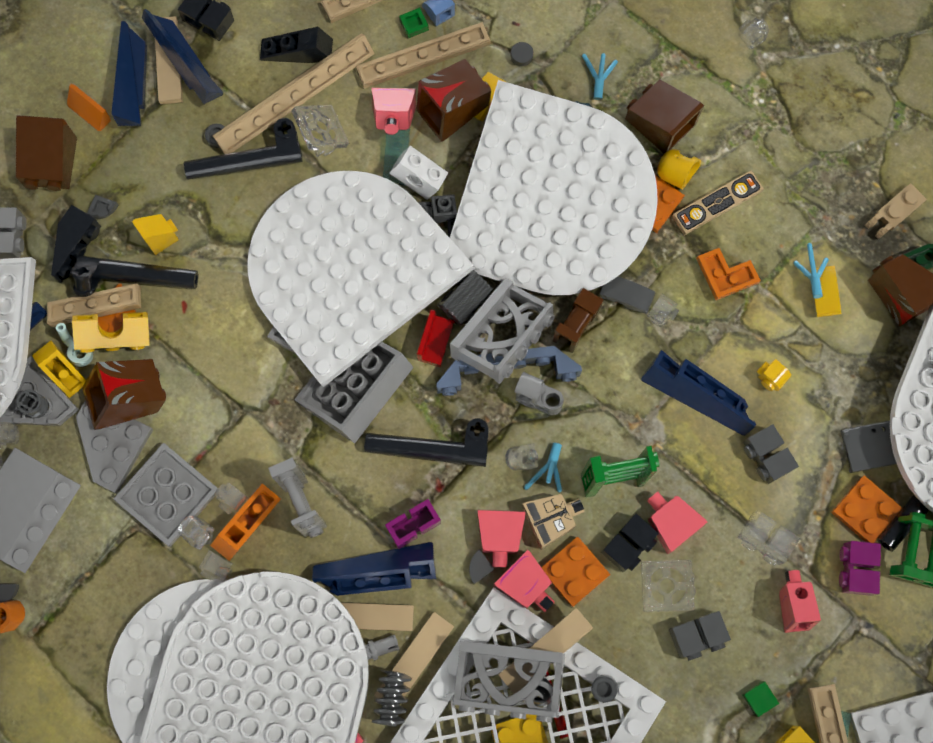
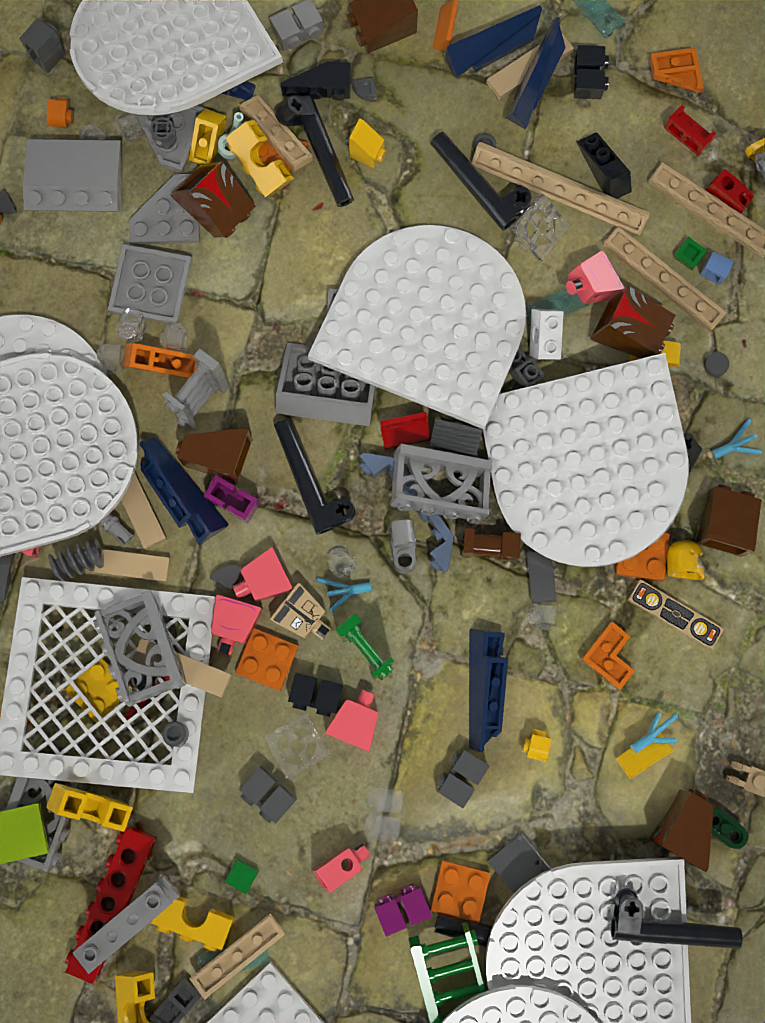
camera: 60 degrees right, 5 degrees up
(363, 515) = (216, 452): none -> reddish brown slope

